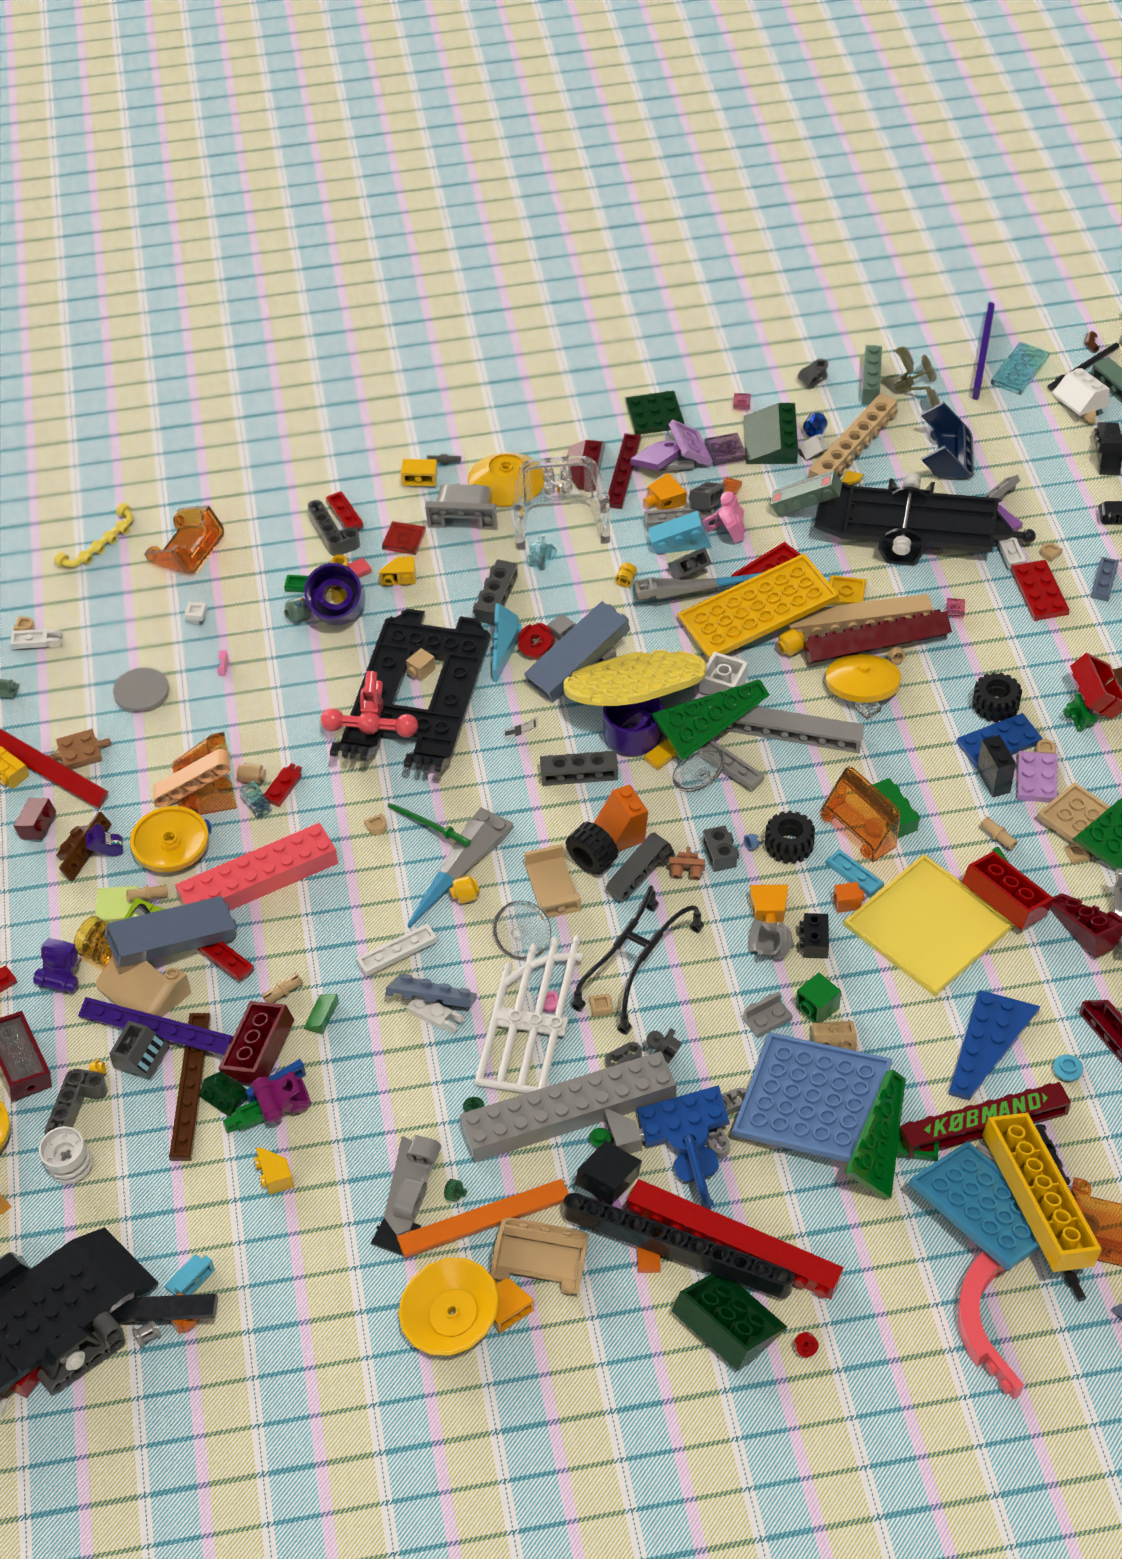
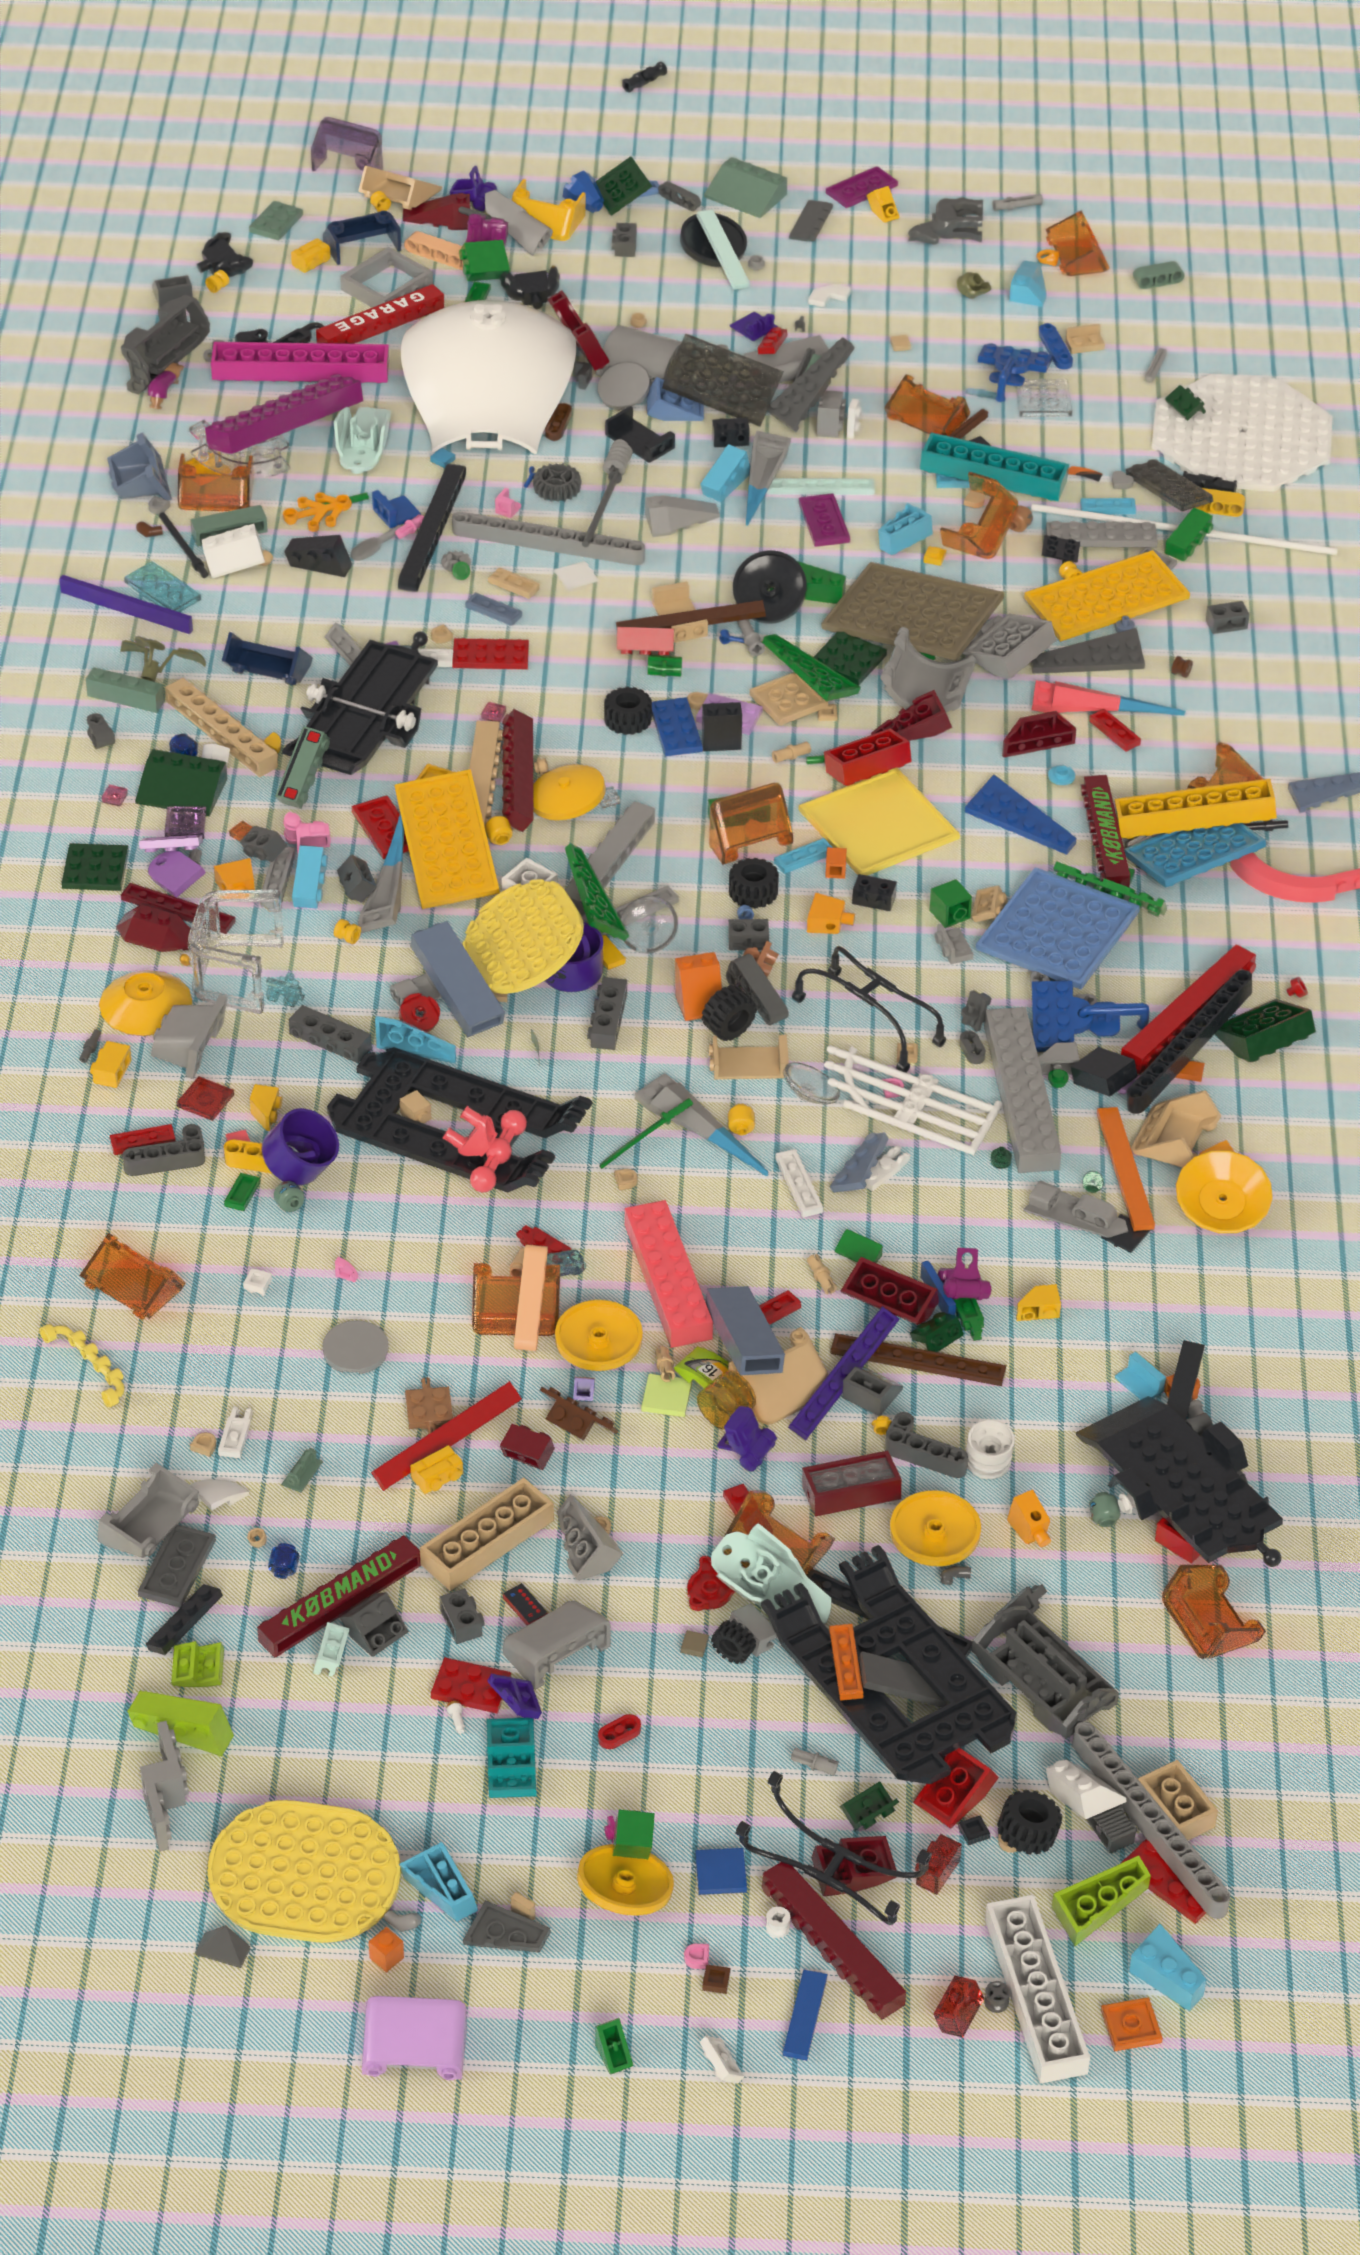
camera: 80 degrees left, 5 degrees down
(770, 939) = (870, 925): light grey helmet -> none

